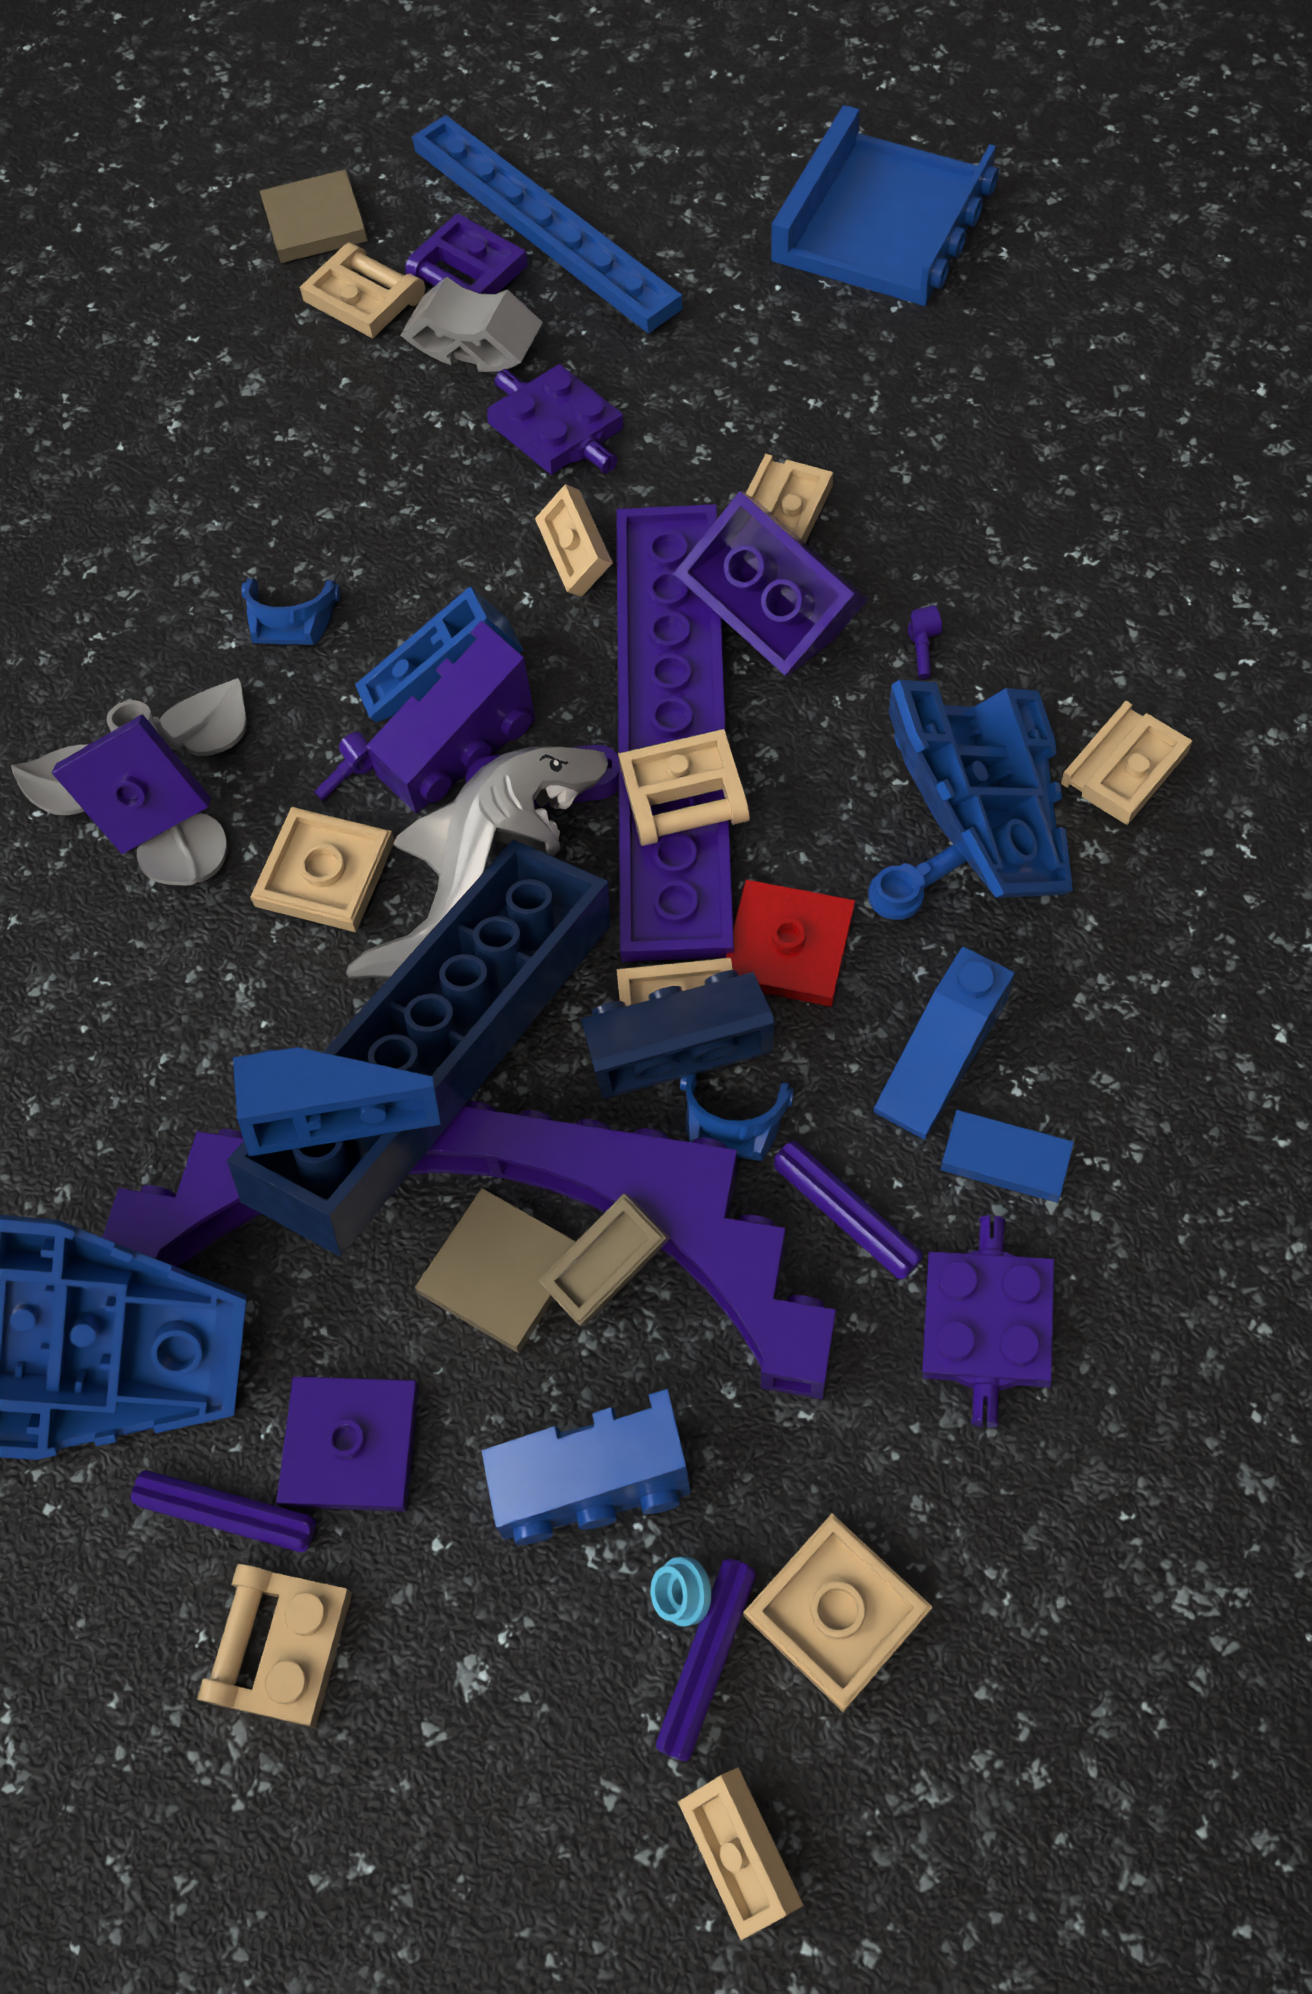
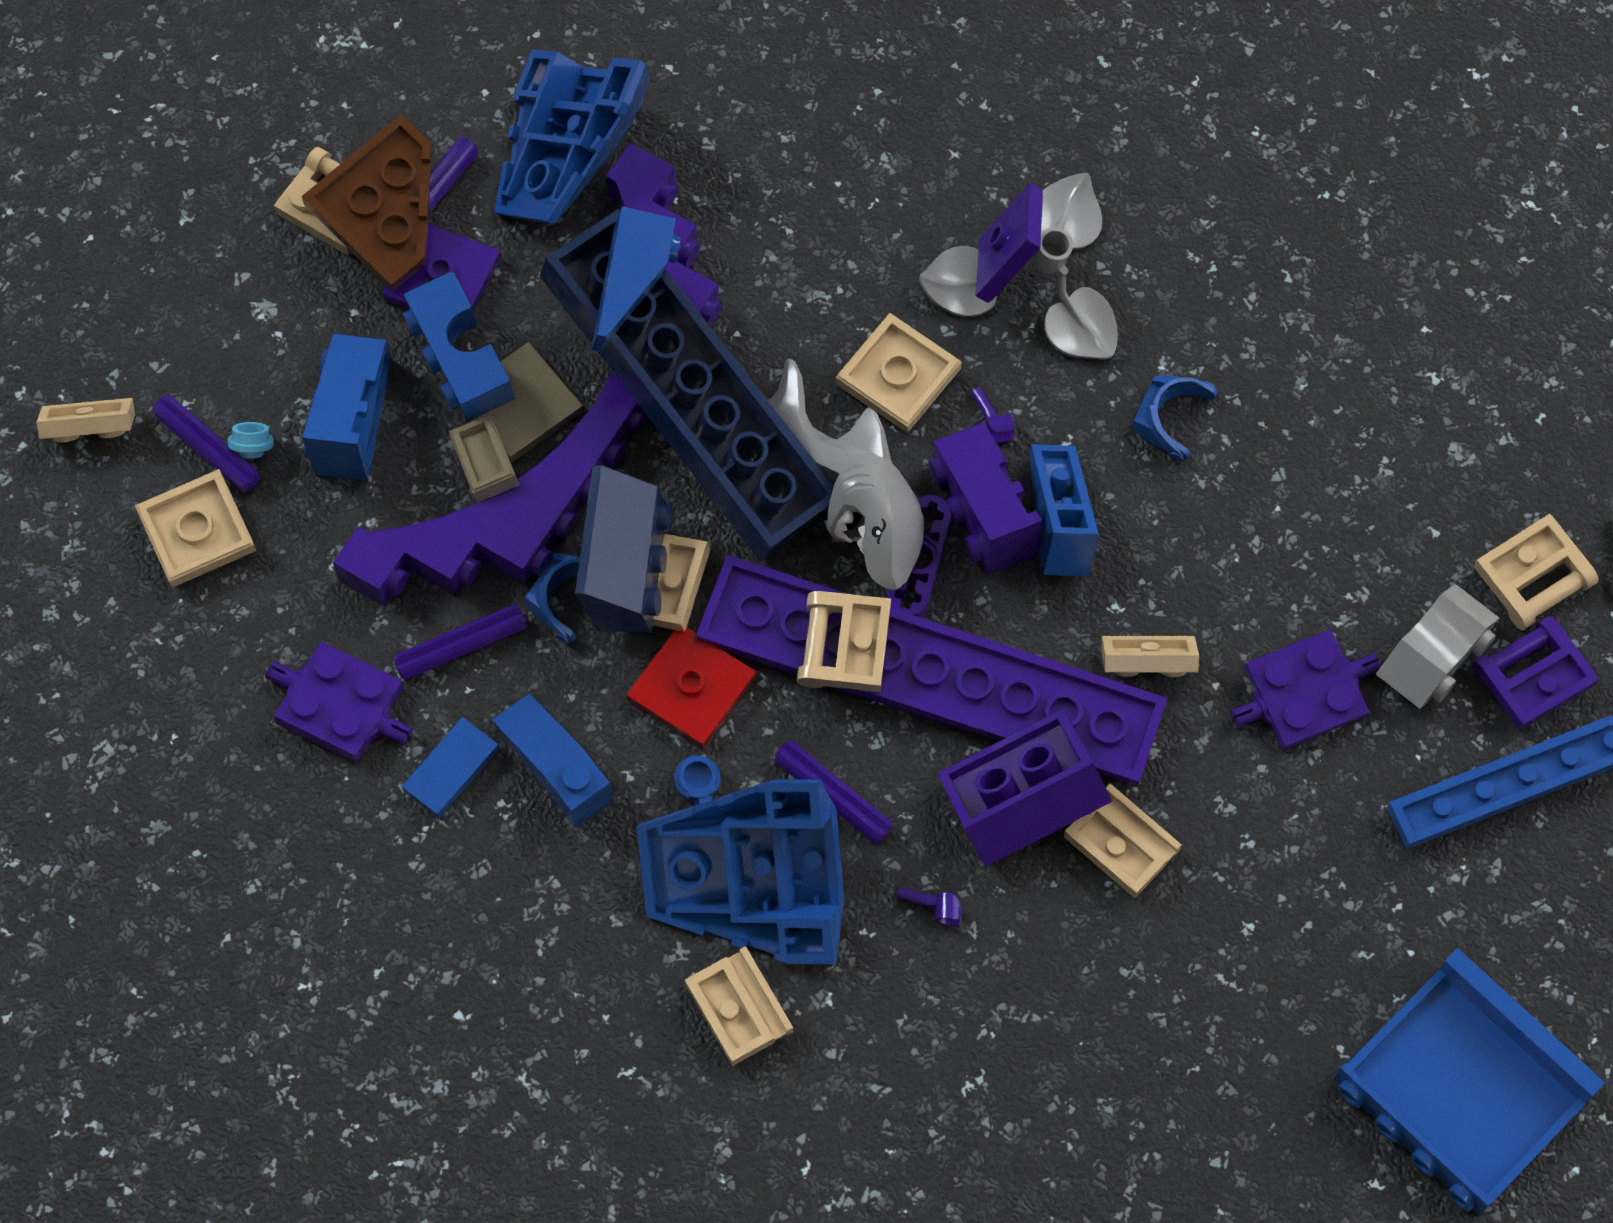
camera: 105 degrees right, 5 degrees up
(271, 1550) = (381, 202): none -> reddish brown plate
(427, 1397) = (473, 379): none -> blue arch
(847, 765) = (847, 802): none -> dark purple axle

